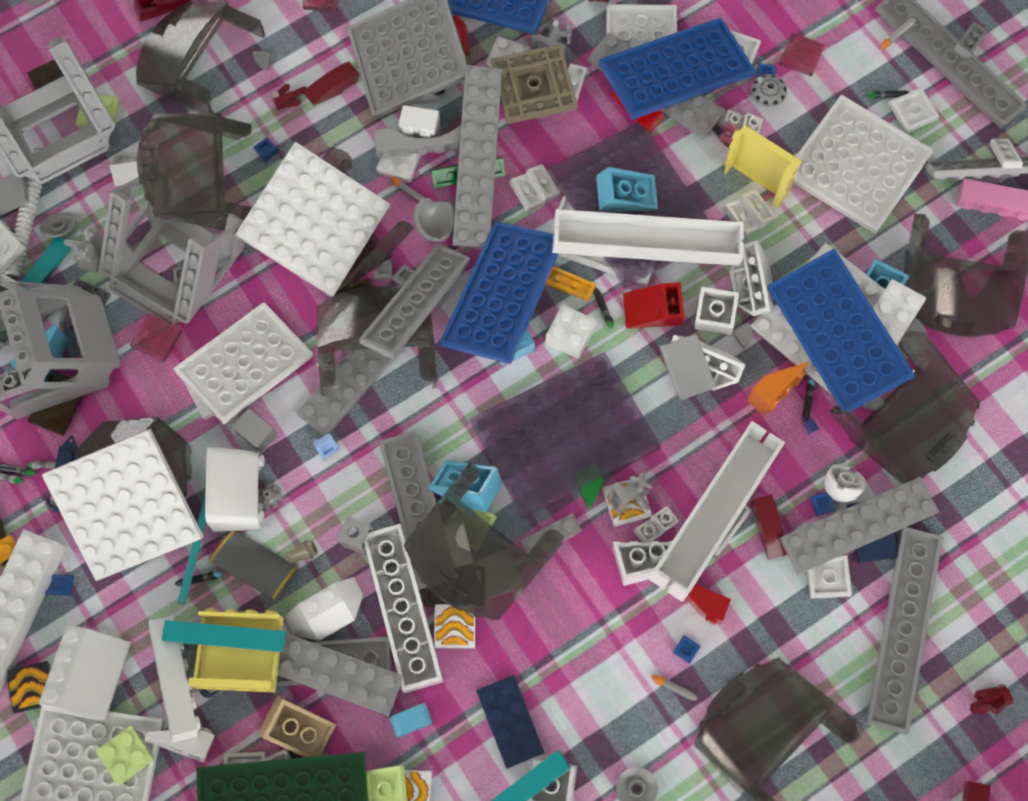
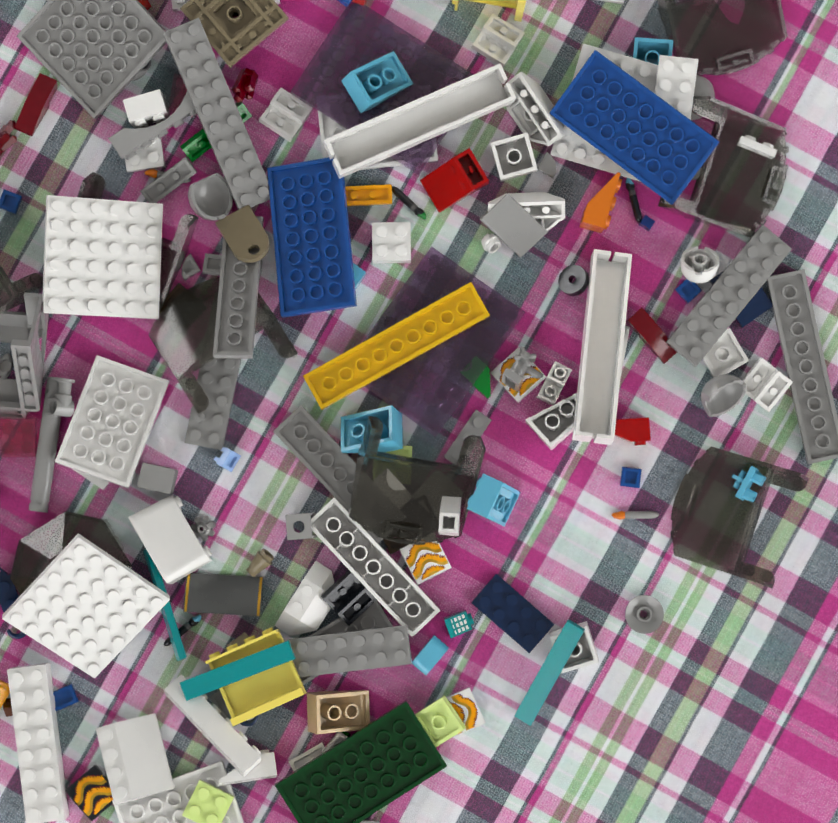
camera: 30 degrees left, 15 degrees up
(204, 327) = (57, 404): none -> light grey piece
(363, 624) = (348, 598): none -> black slope
(407, 192) = (168, 181): none -> light grey tile
(443, 260) = (242, 233): none -> dark tan tile
(453, 702) = (458, 623): none -> teal slope
(496, 595) = (449, 516): none -> white slope
(513, 146) = (245, 85): none -> dark red rock
(528, 418) = (396, 345): none -> yellow plate
(546, 600) = (493, 499): none -> medium azure slope
(659, 375) = (491, 243): none -> white plate
(725, 439) = (580, 283): none -> piece
(797, 707) = (744, 491): none -> medium azure hips
(812, 613) = (722, 394): none -> light grey cylinder
(857, 625) = (765, 384): none -> white slope
(941, 401) = (749, 143): none -> white plate

